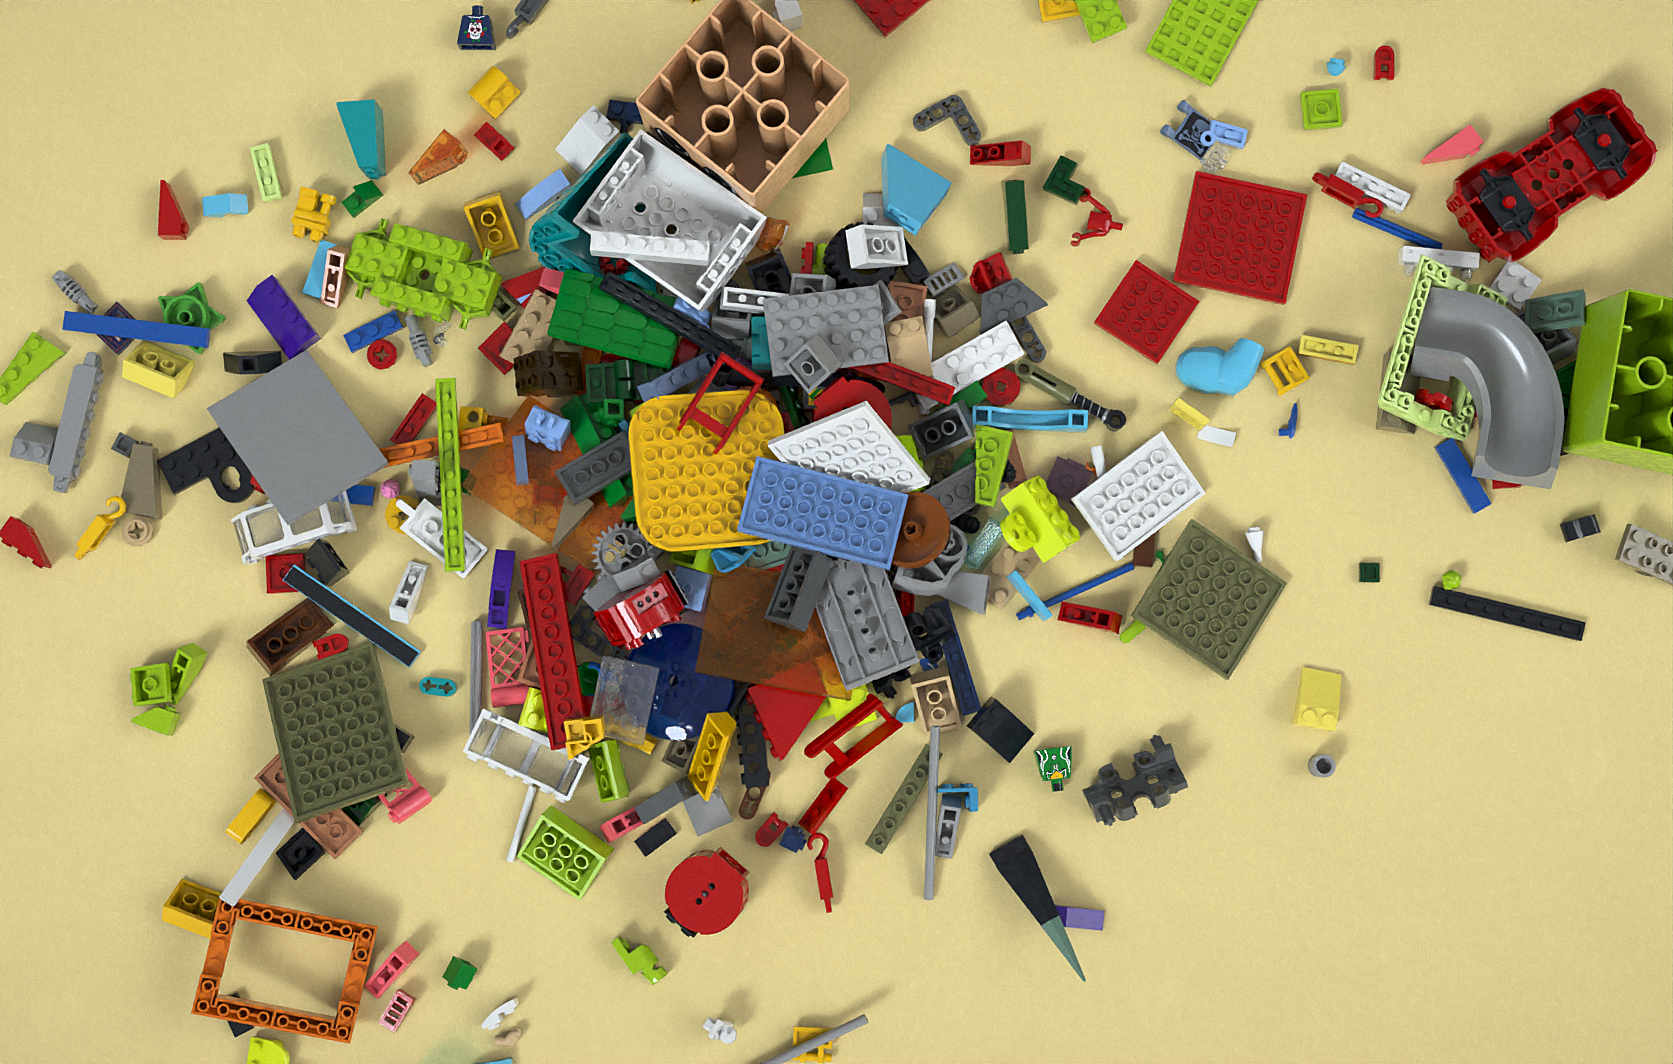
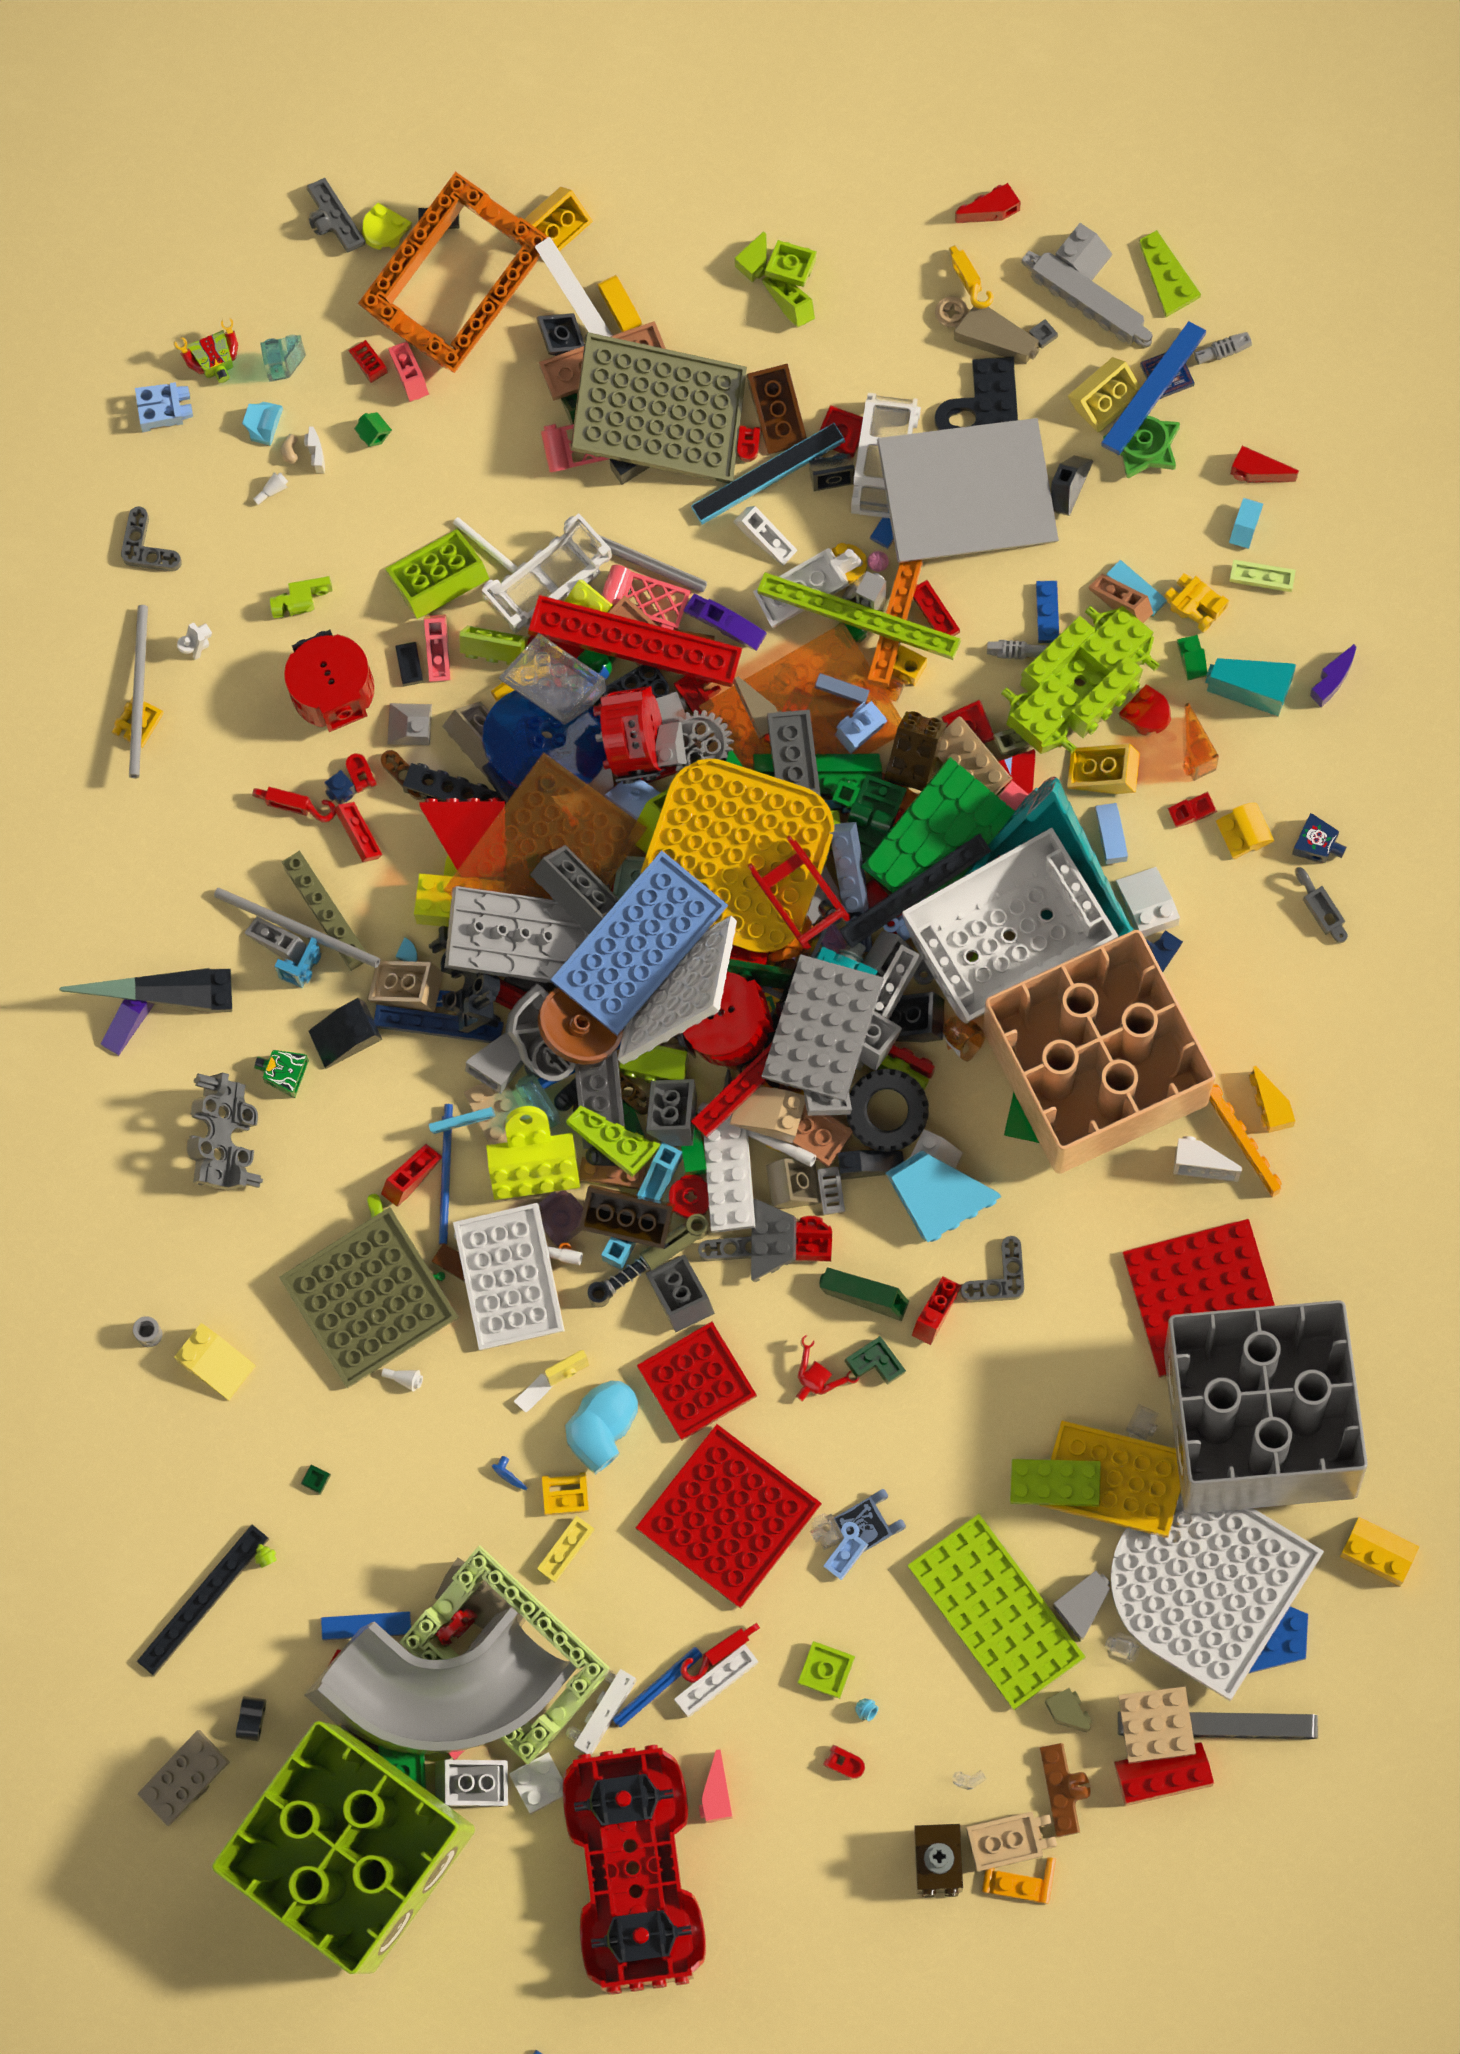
camera: 115 degrees right, 10 degrees down
(282, 317) = (1102, 532): dark purple slope -> none
(329, 78) = (1333, 677): none -> dark purple slope
(377, 347) = (1018, 600): red gear -> none
(425, 212) = (1147, 711): none -> red slope
(437, 691) = (655, 522): teal beam -> none
(438, 336) = (1013, 671): clear arm -> none
(547, 1033) = (274, 485): none -> white cone
(583, 733) = (538, 628): yellow slope -> none
(649, 248) = (985, 887): white brick -> none
(665, 800) = (437, 681): dark grey slope -> none
(711, 752) = (458, 739): yellow slope -> none
(731, 557) = (639, 840): dark azure slope -> none
(813, 364) = (791, 995): light grey slope -> none
(845, 760) = (391, 868): red piece -> none
(876, 246) = (888, 1123): white slope -> none
(1046, 423) = (626, 1216): none -> dark brown slope
(1083, 357) = (680, 1293): none -> dark grey slope
(1556, 311) = (485, 1796): sand green plate -> none

